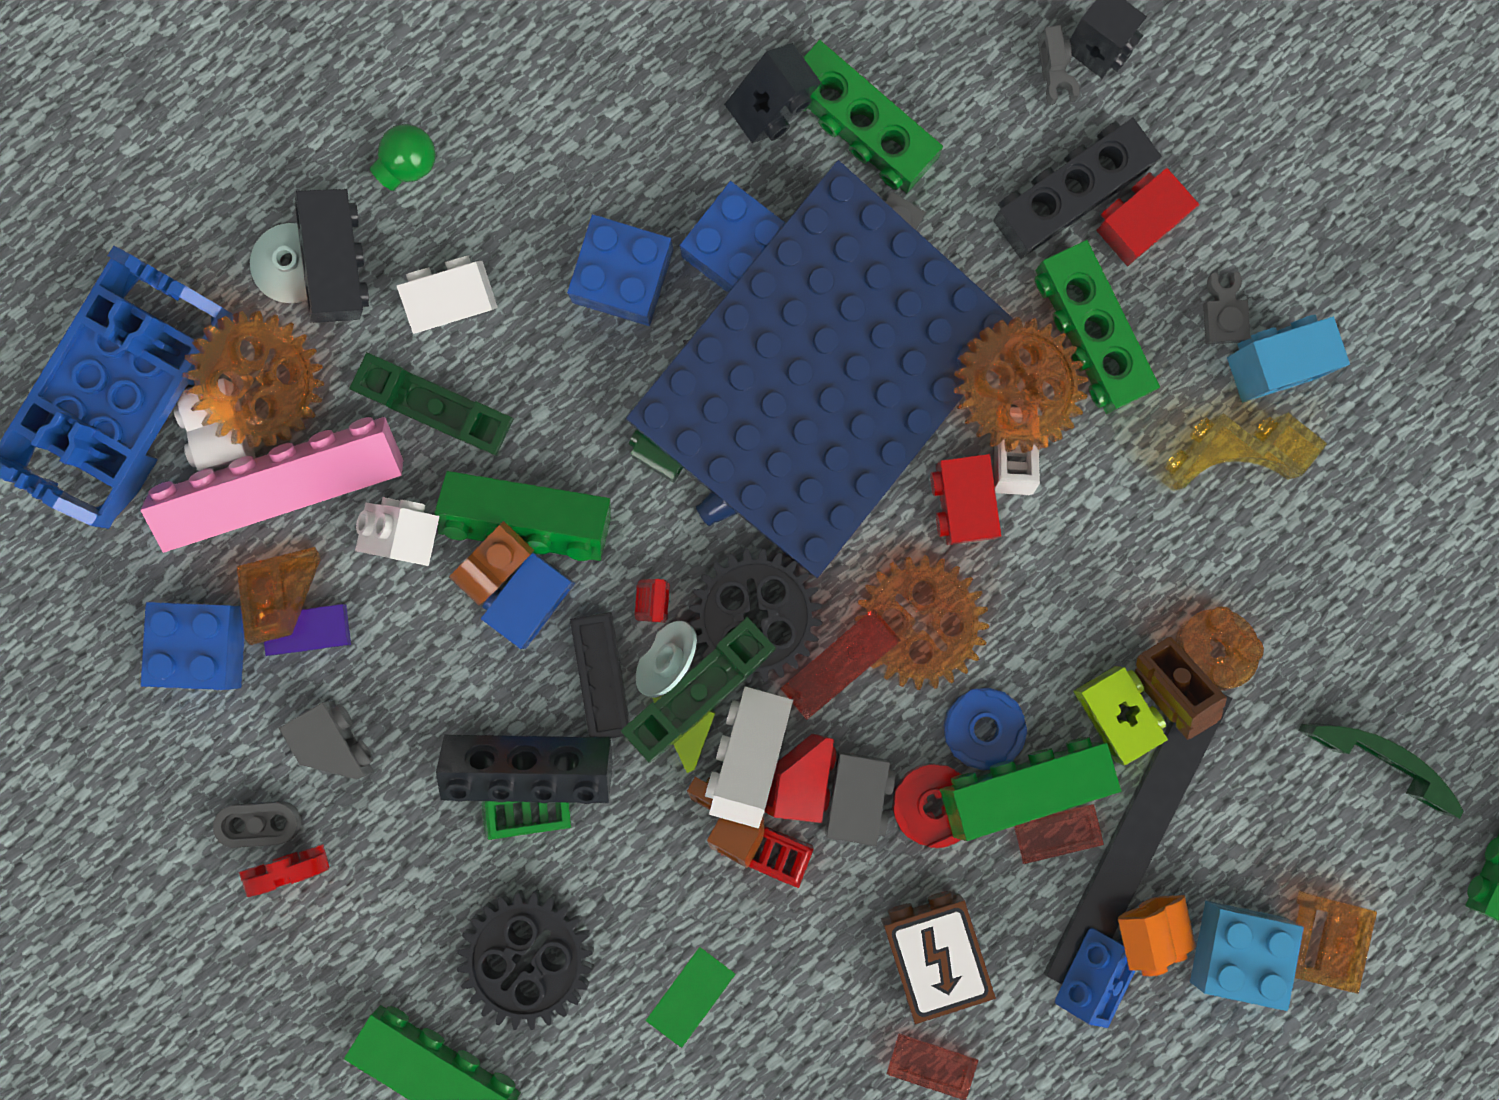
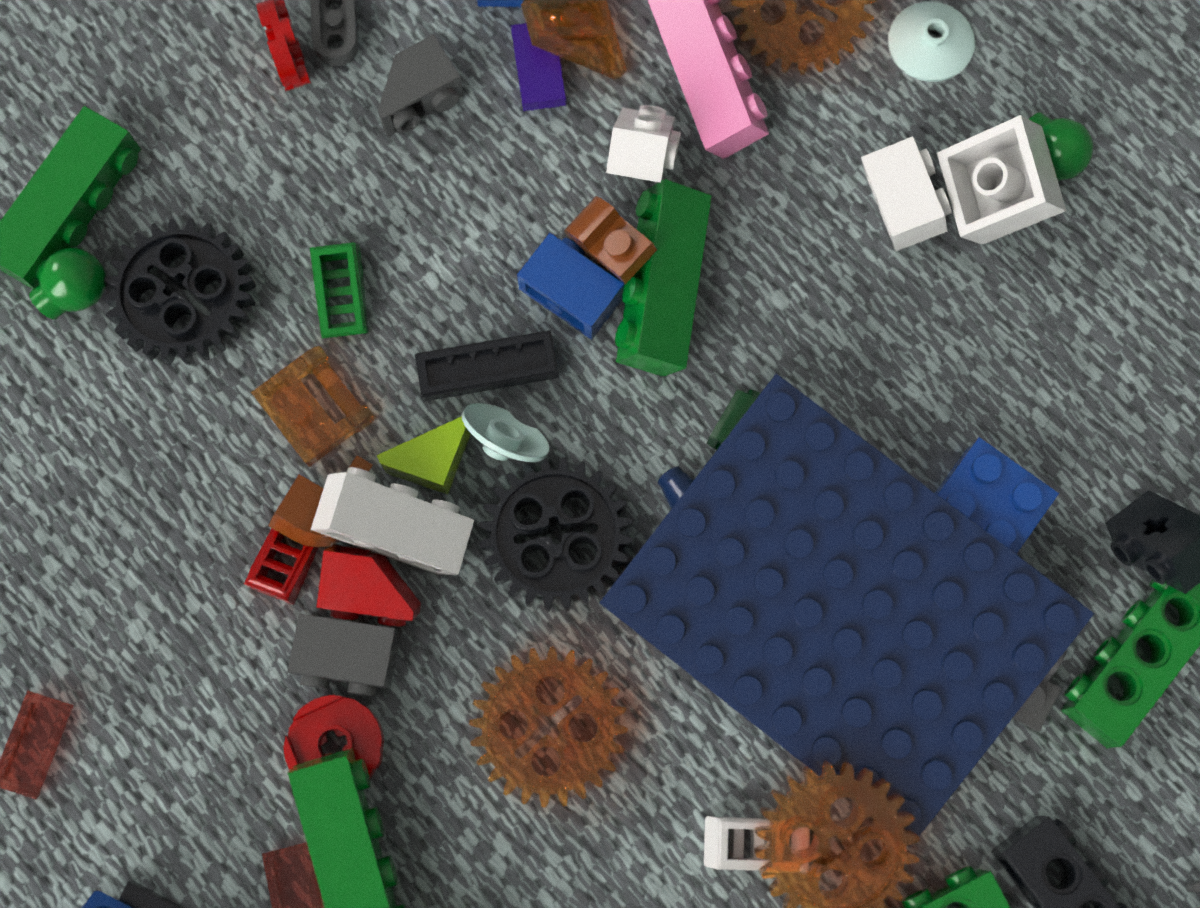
camera: 90 degrees right, 10 degrees down
(330, 255) = (942, 74): black brick -> none
(431, 404) = (784, 181): dark green slope -> none
(440, 209) = (1001, 180): none -> white brick
(517, 1062) = (68, 282): none -> green piece
(525, 769) = (385, 285): black brick -> none
(620, 270) = (946, 378): blue brick -> none
(643, 844) = (299, 413): none -> clear orange plate
(652, 600) = (570, 422): red slope -> none
(690, 997) = (129, 471): green sticker -> none
(699, 691) = (466, 464): dark green slope -> none
(840, 664) = (500, 630): clear red tile -> none
(937, 956) = (156, 746): panel -> none
(960, 724) = (452, 812): blue tile -> none
(966, 500) = (695, 780): red brick -> none

